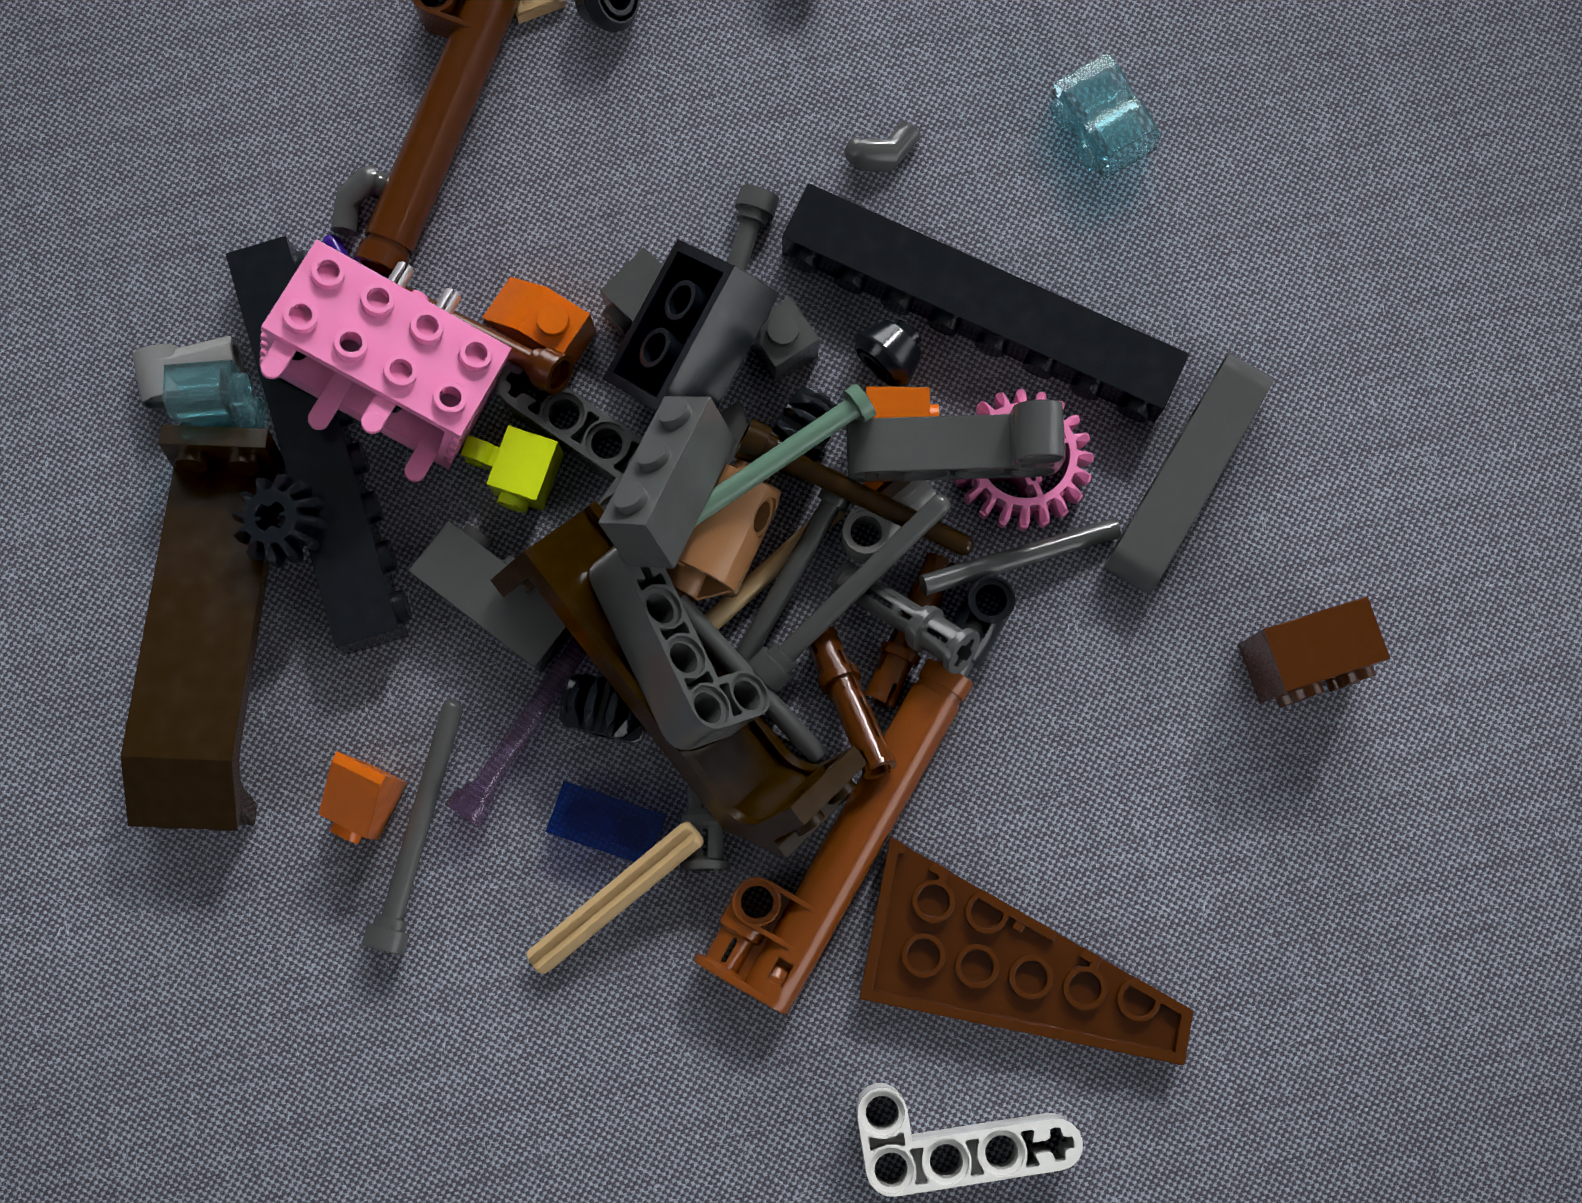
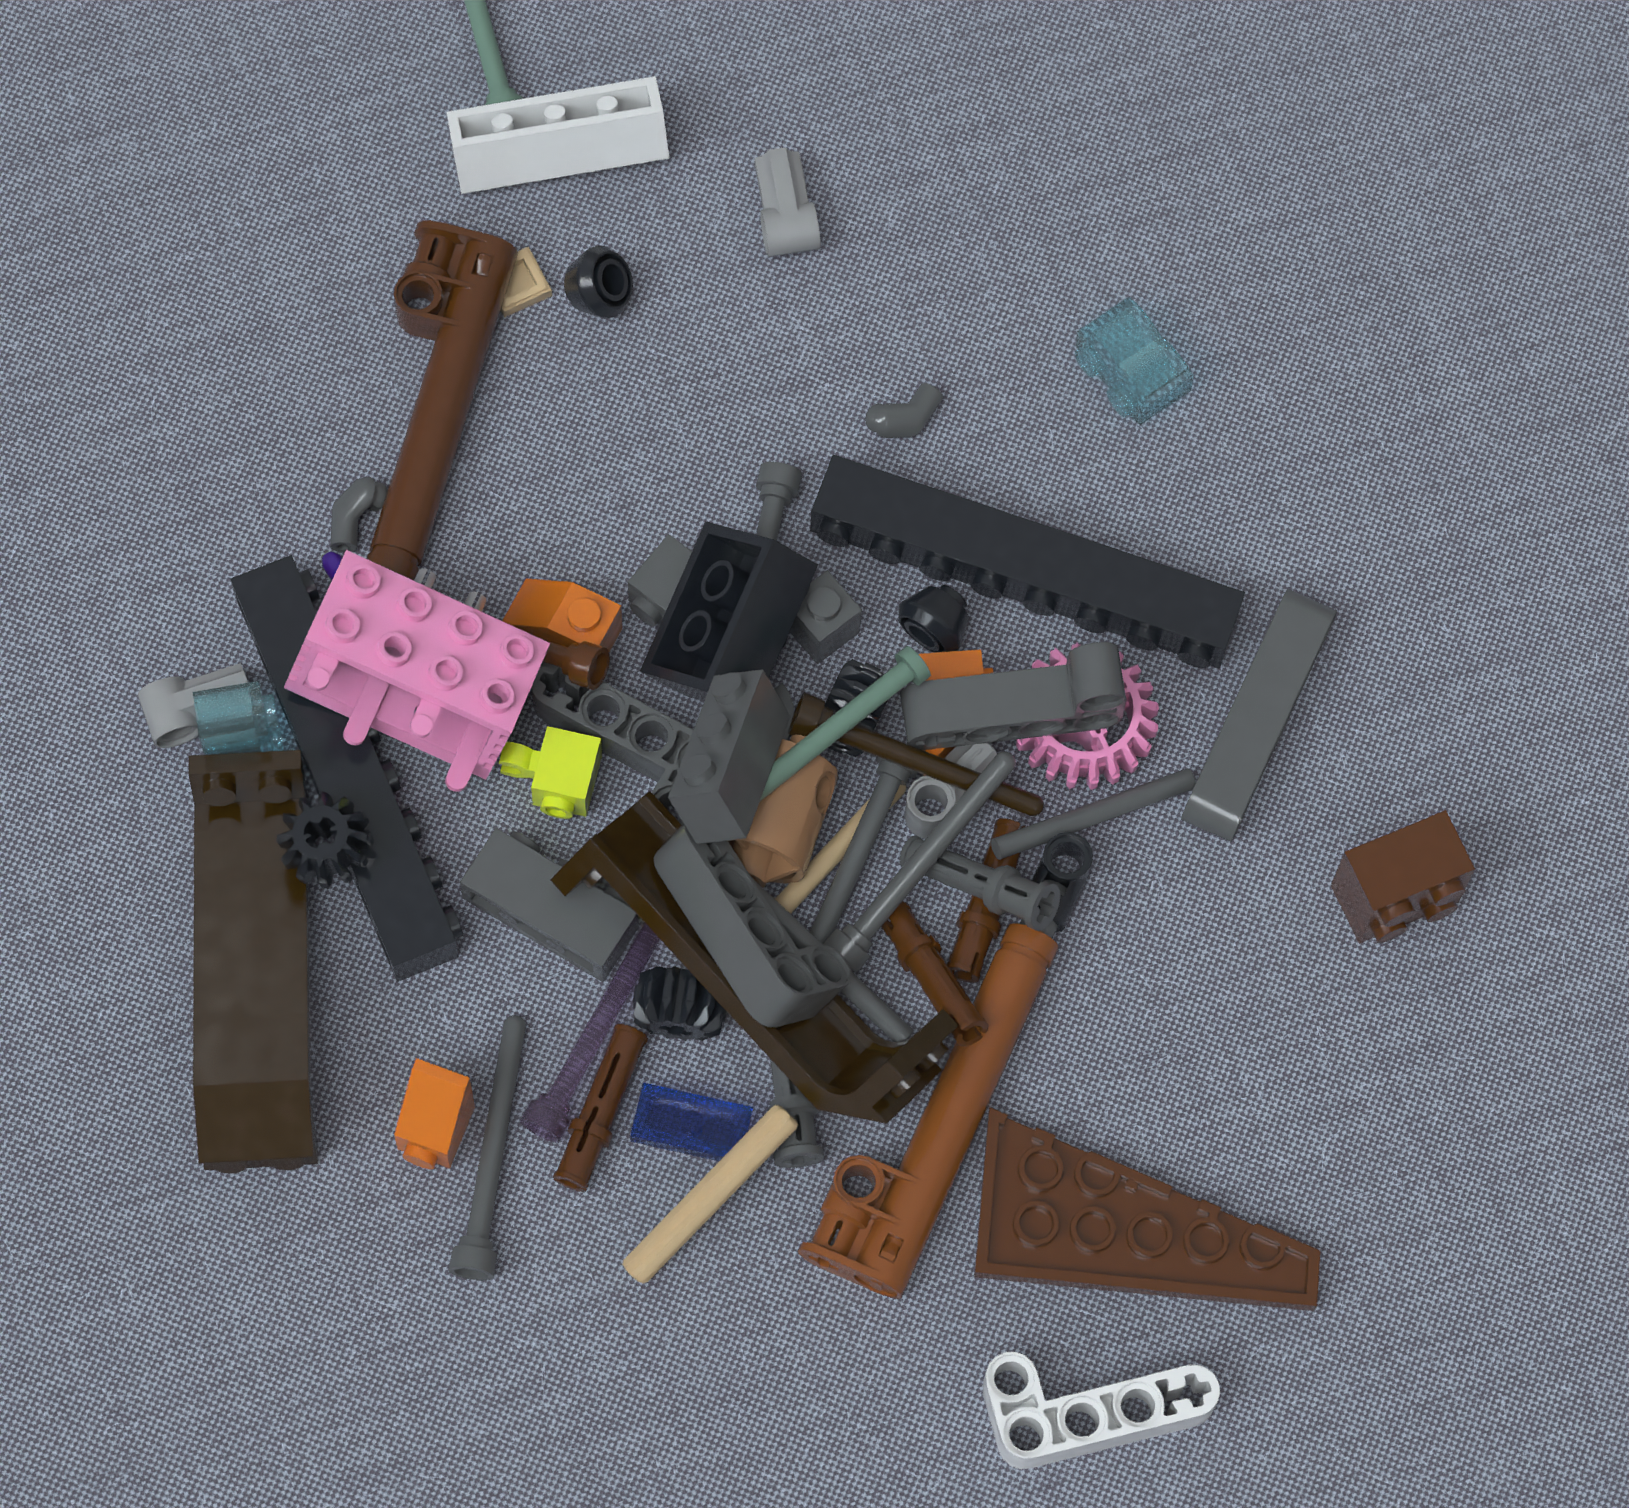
camera: 10 degrees left, 10 degrees down
(522, 799) = (591, 1129): none -> reddish brown pin

